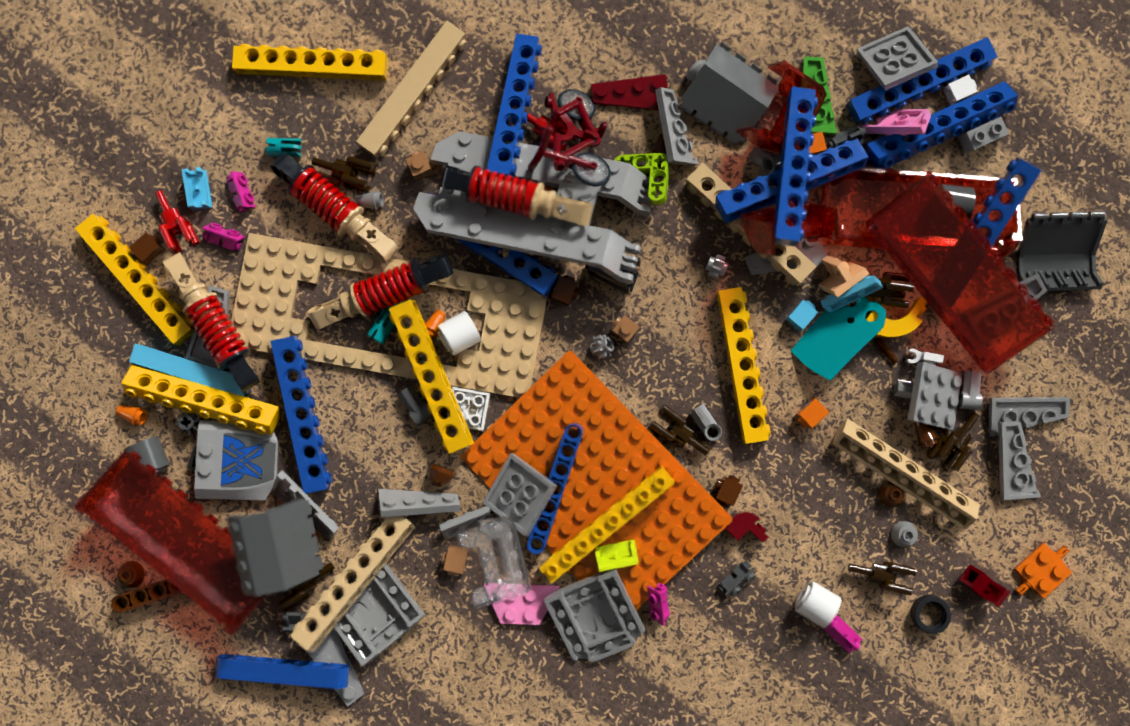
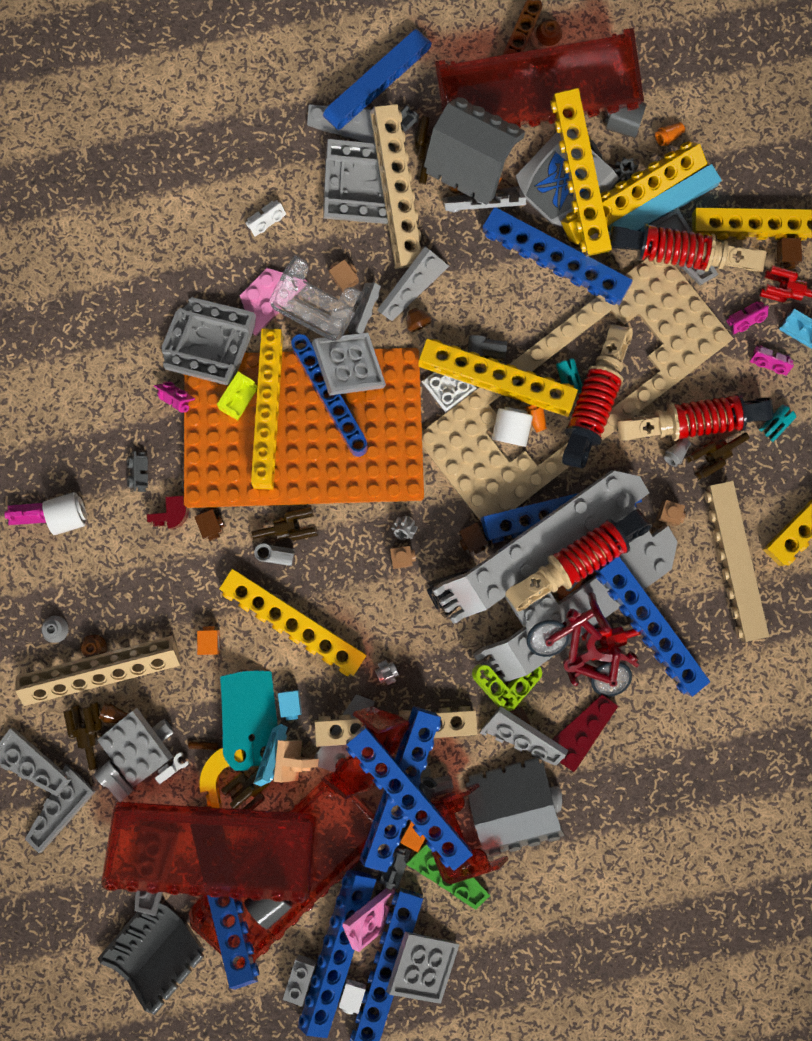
camera: 125 degrees right, 0 degrees up
(172, 502) = (572, 101): none -> yellow brick
(472, 660) = (272, 213): none -> white hinge
(886, 575) = (38, 585): dark brown plant -> none

